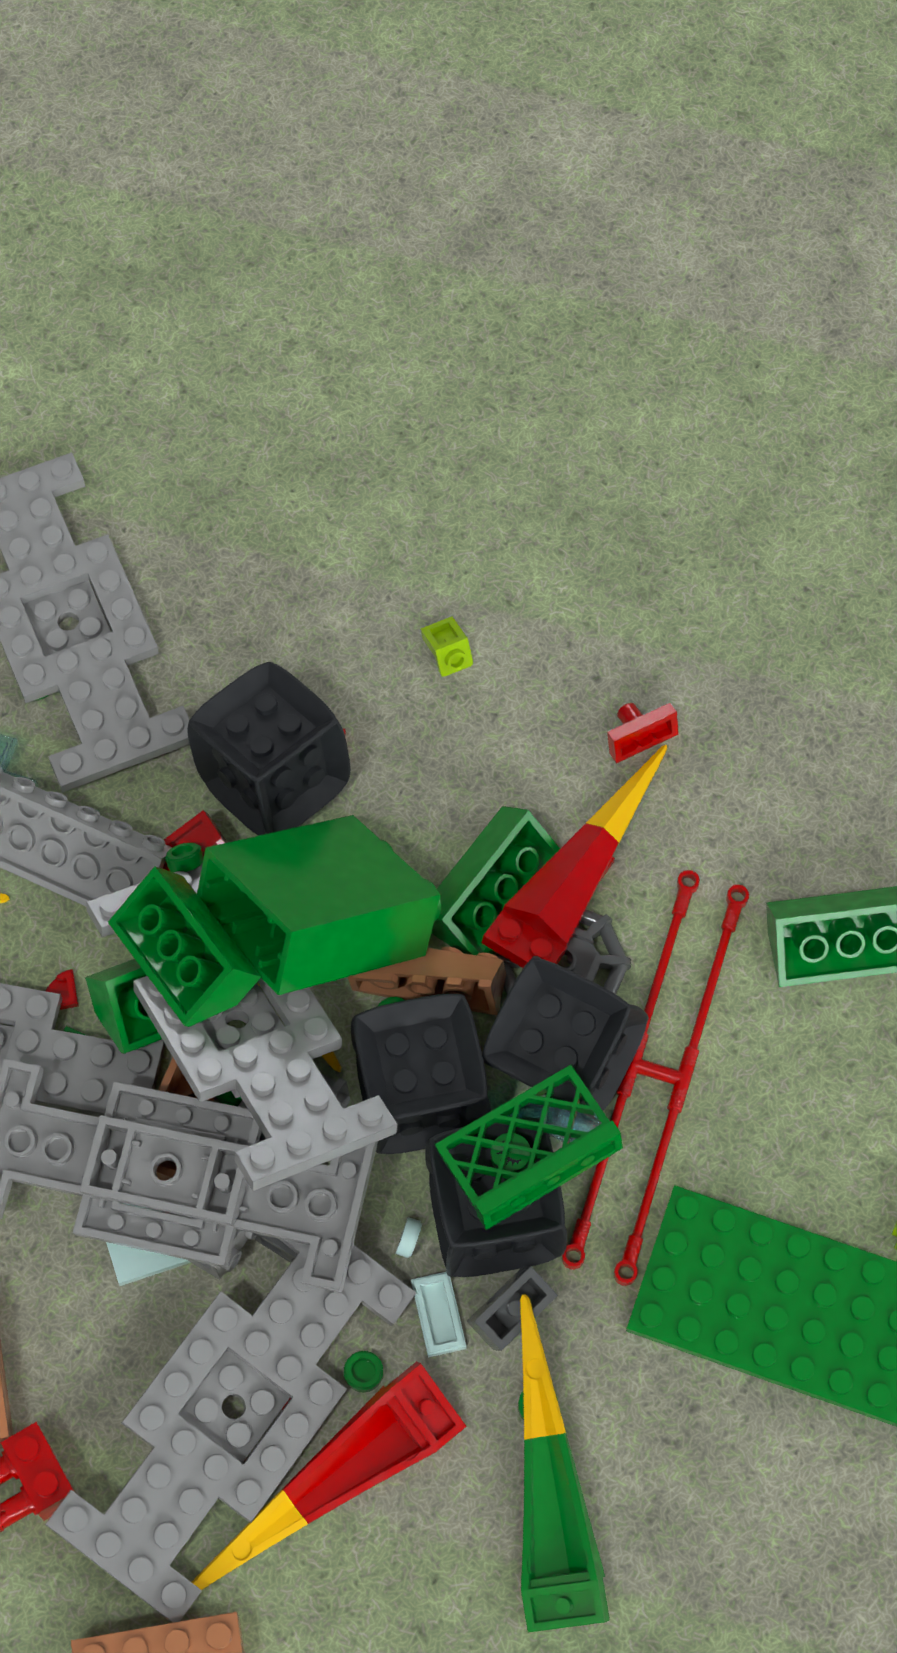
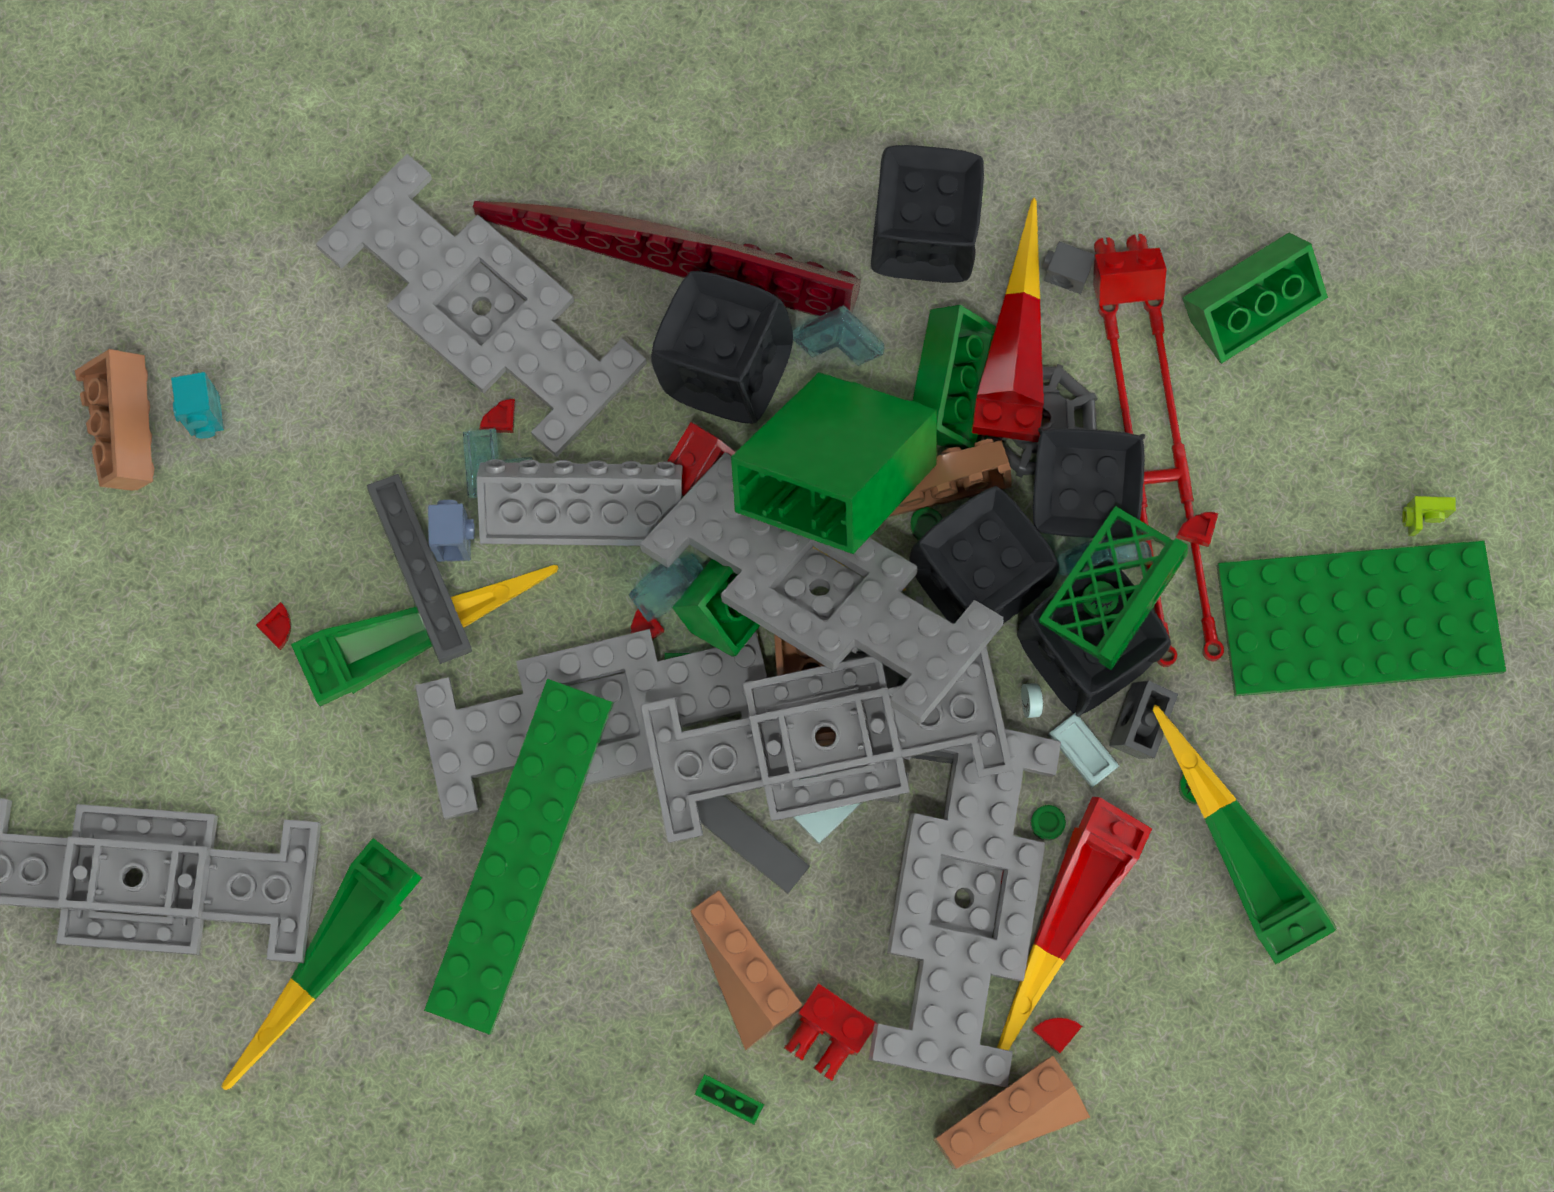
camera: 25 degrees left, 10 degrees up
(30, 733) = (500, 417): none -> red tile
(51, 1250) = (752, 842): none -> dark grey tile
(91, 956) = (664, 586): none -> clear light blue brick
(183, 947) = (750, 549): green slope -> none
(184, 857) = (697, 469): green tile -> none
(261, 1594) = (1057, 1032): none -> red tile
(268, 637) = (679, 251): none -> dark red wedge
(402, 788) = (841, 330): none -> clear light blue brick
(448, 646) = (813, 188): lime bracket -> none
(539, 709) = (927, 213): none -> black piece
(641, 731) = (1009, 195): red tile -> none
(665, 824) = (1068, 267): none -> dark grey brick
(669, 1140) = (1199, 529): none -> red tile
(721, 856) = (1129, 274): none -> red brick

